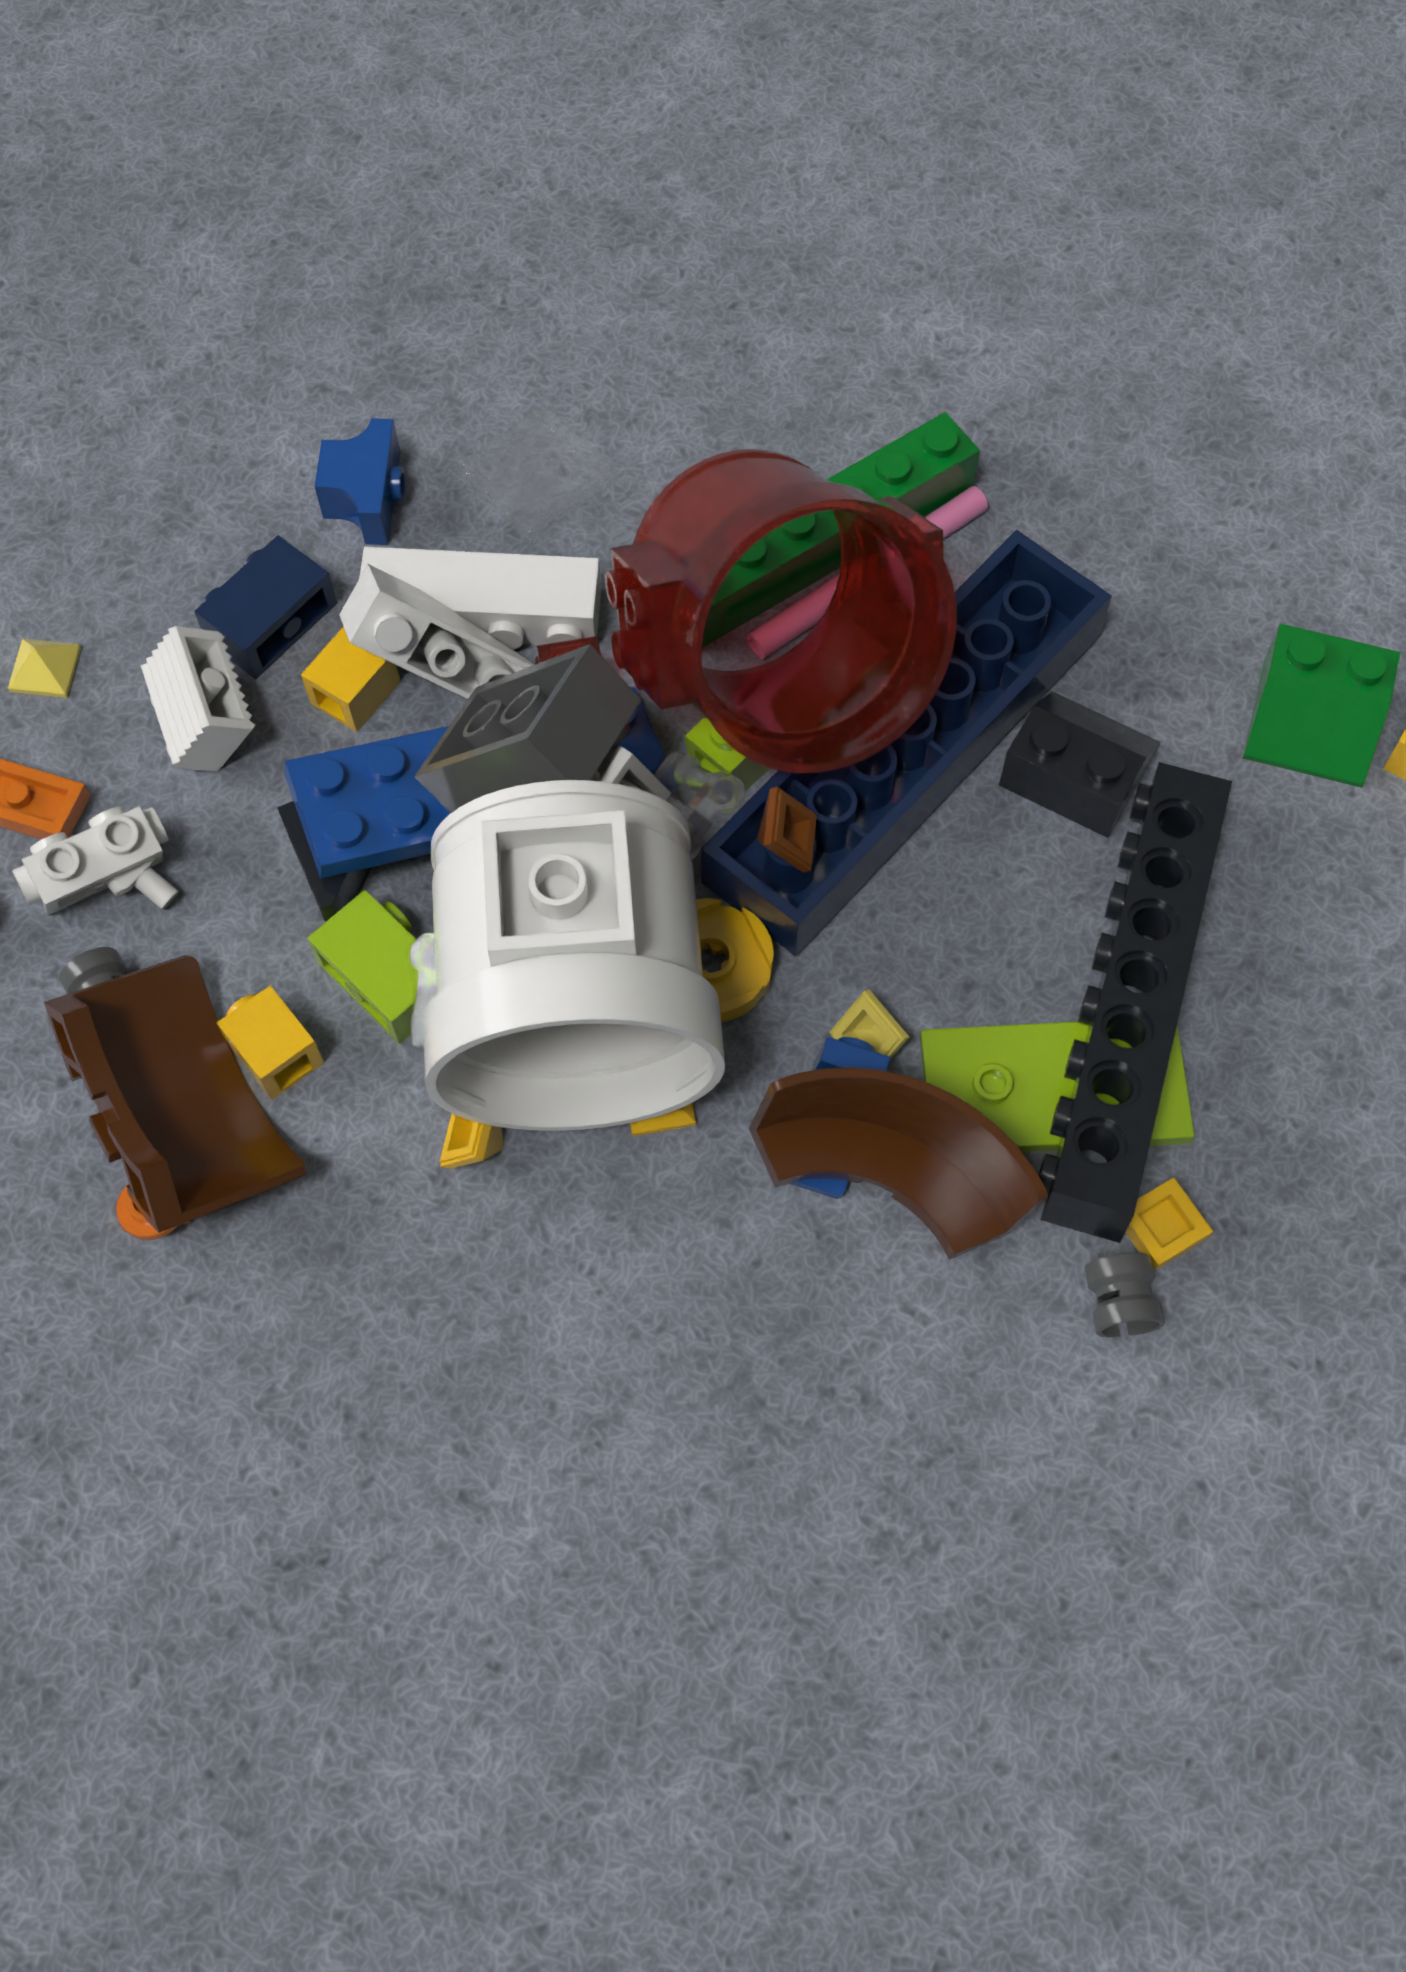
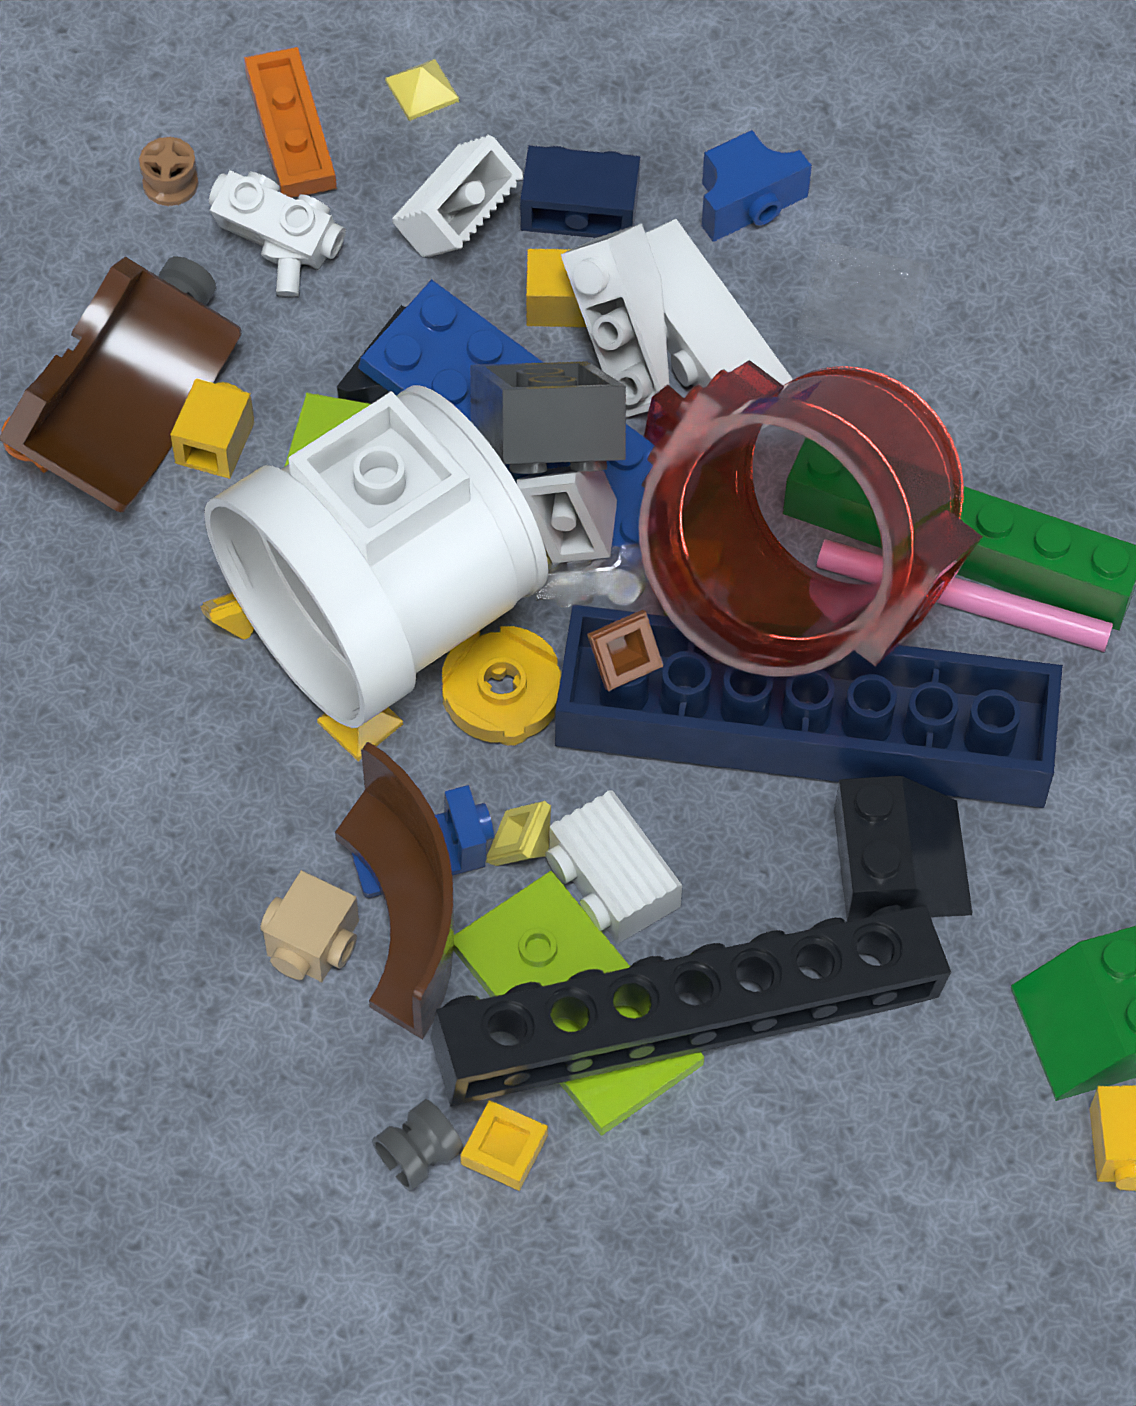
camera: 55 degrees right, 5 degrees down
(852, 1261) = (310, 928): none -> tan brick
(955, 978) = (613, 867): none -> white brick

